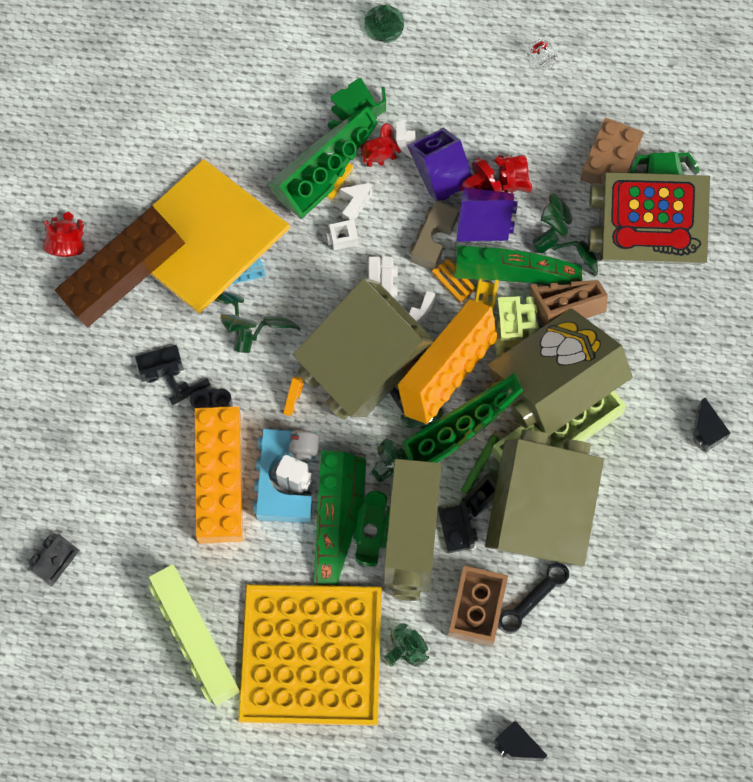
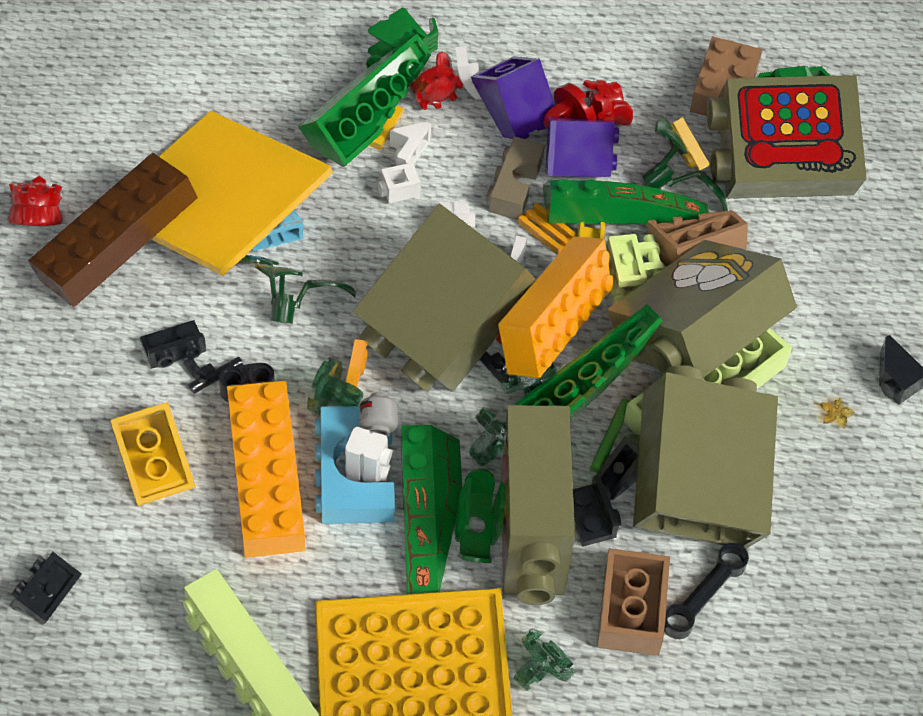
camera: 10 degrees left, 15 degrees down
(137, 456) = (152, 453): none -> yellow slope
(270, 413) = (331, 388): none -> clear green tile
(575, 227) = (695, 157): none -> yellow plate
(656, 456) = (836, 413): none -> clear yellow plant

